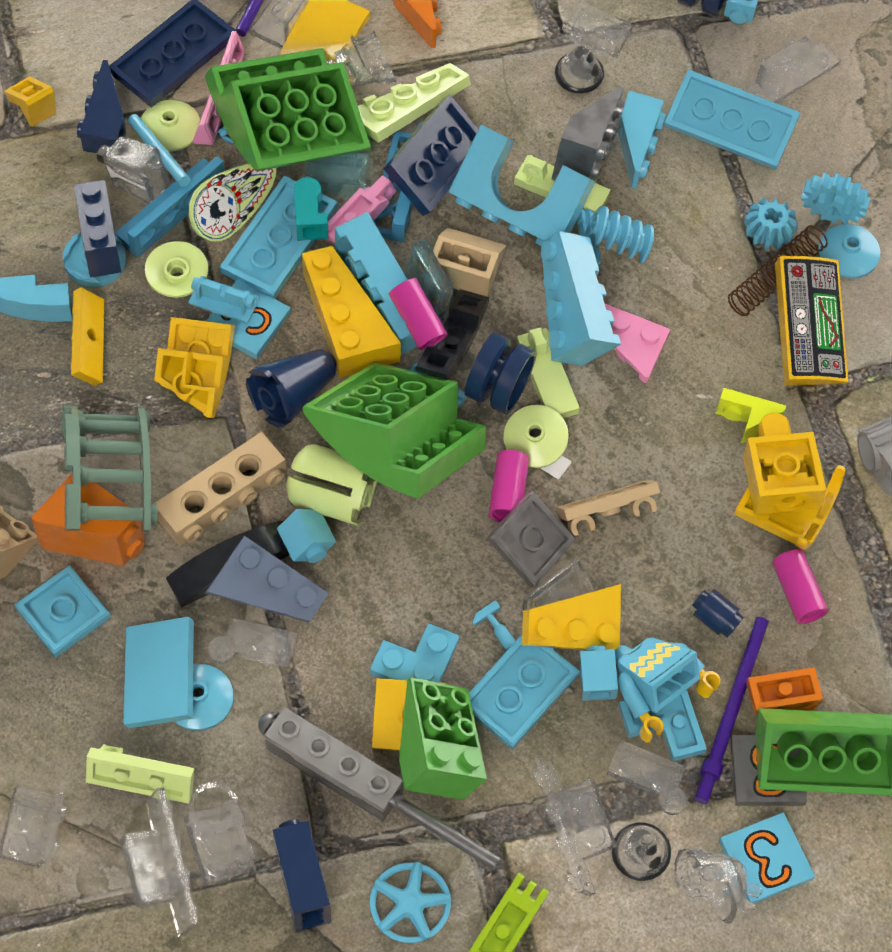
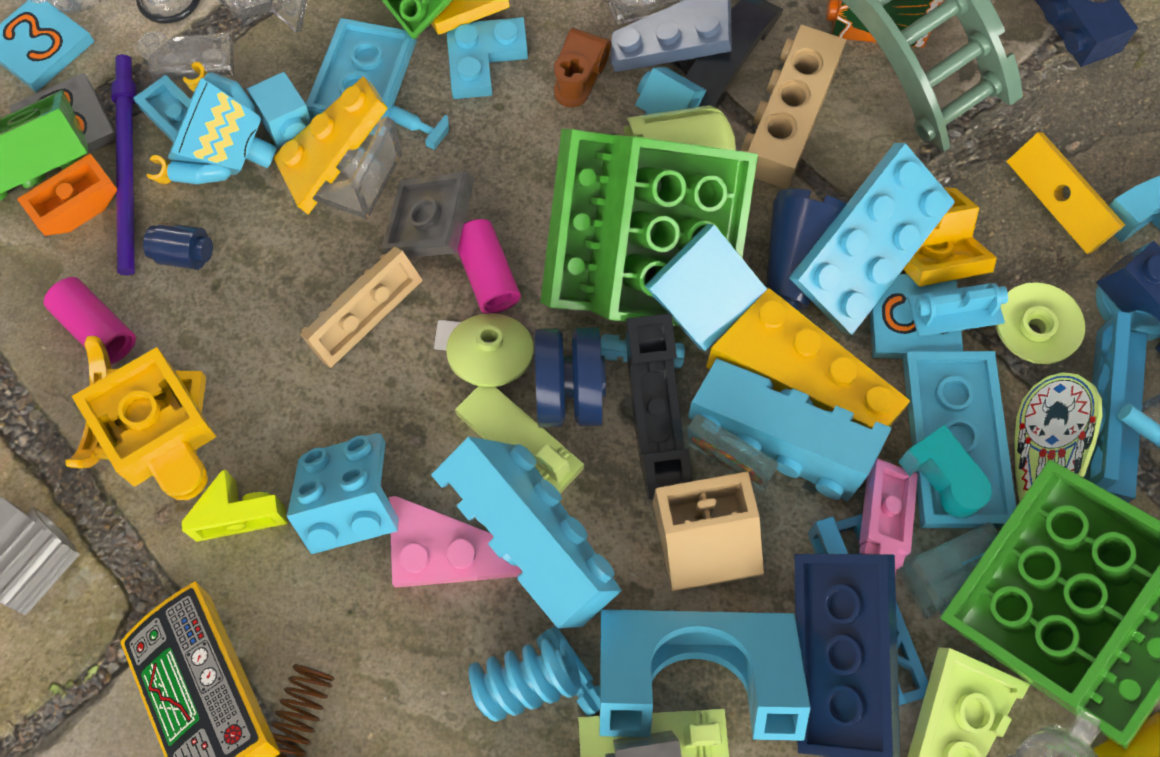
camera: 155 degrees right, 5 degrees up
(250, 351) = (872, 238): none -> medium azure plate
(348, 606) = (579, 66): none -> dark orange piece
(382, 371) = (706, 287): none -> tile
(417, 313) = (712, 381): dark pink pin -> none
(676, 391) = (340, 495): none -> medium azure bracket

